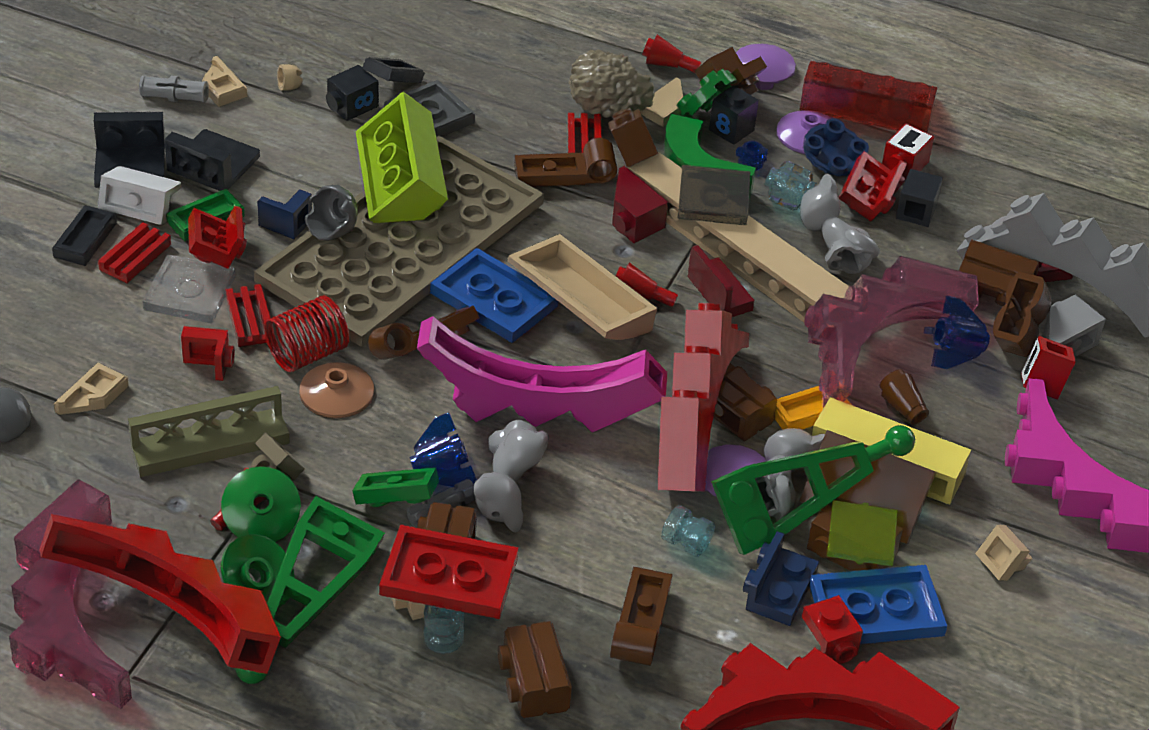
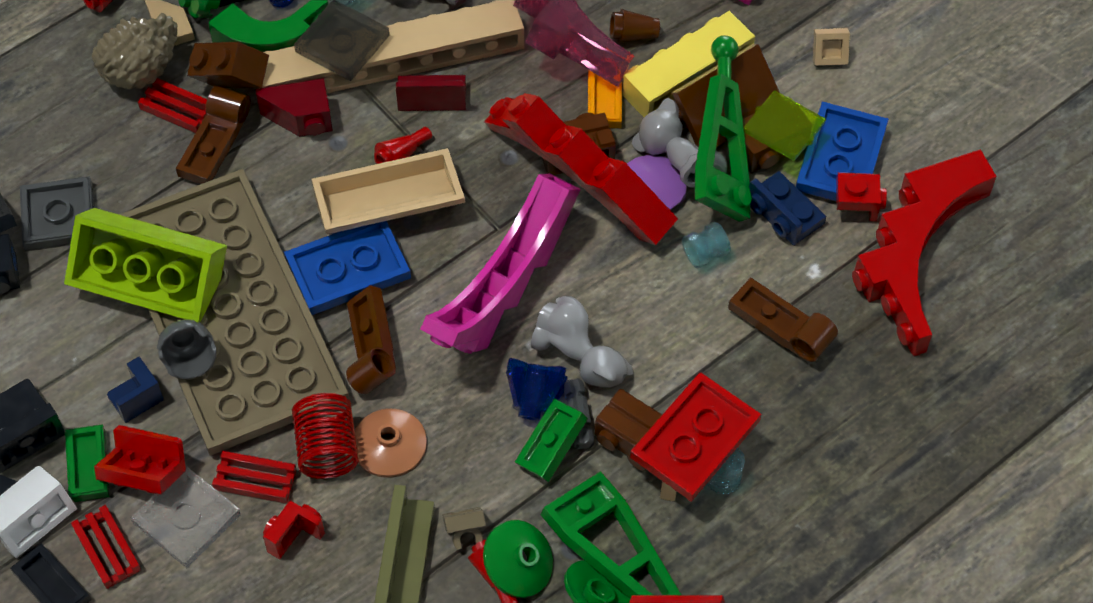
camera: 60 degrees left, 15 degrees up
(535, 669) = (803, 420): reddish brown brick -> none

